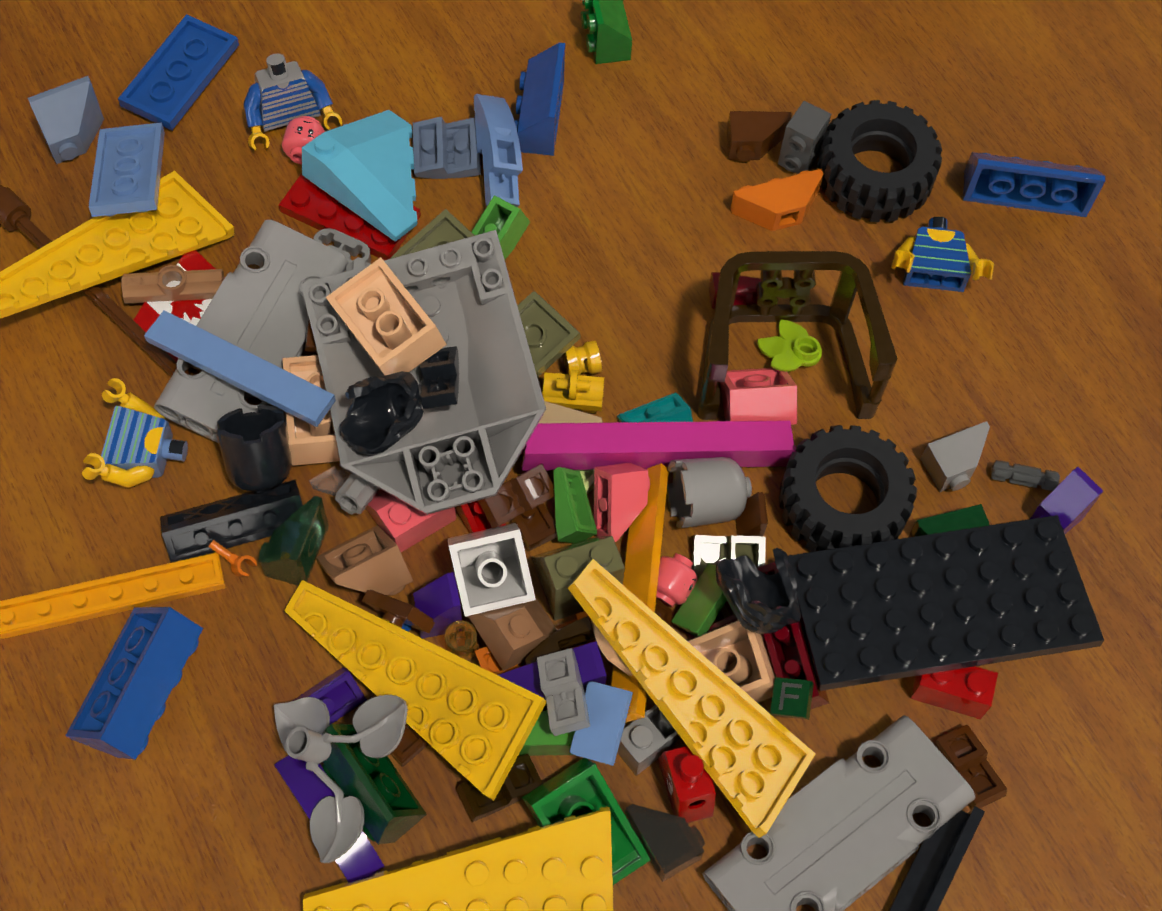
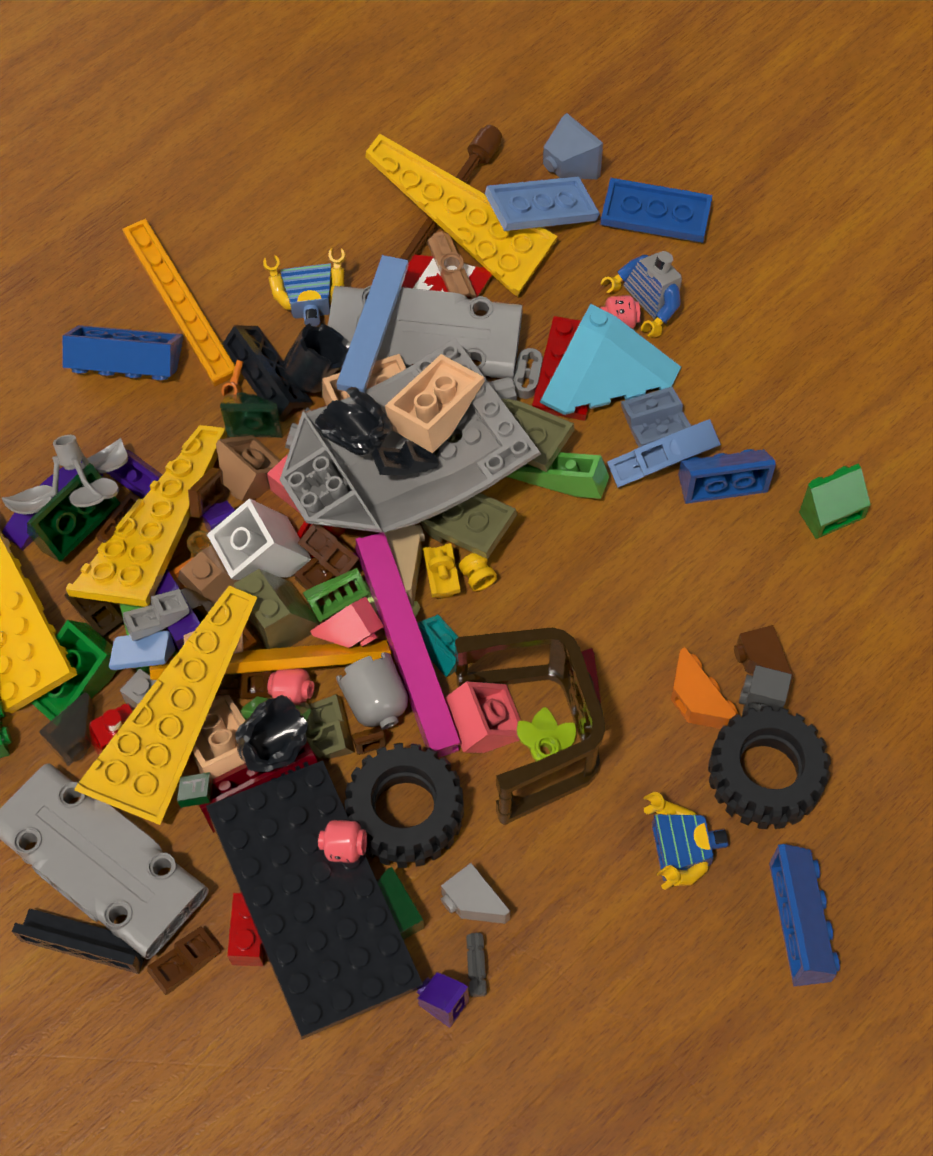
camera: 80 degrees right, 0 degrees up
(900, 545) = (343, 841): none -> coral head

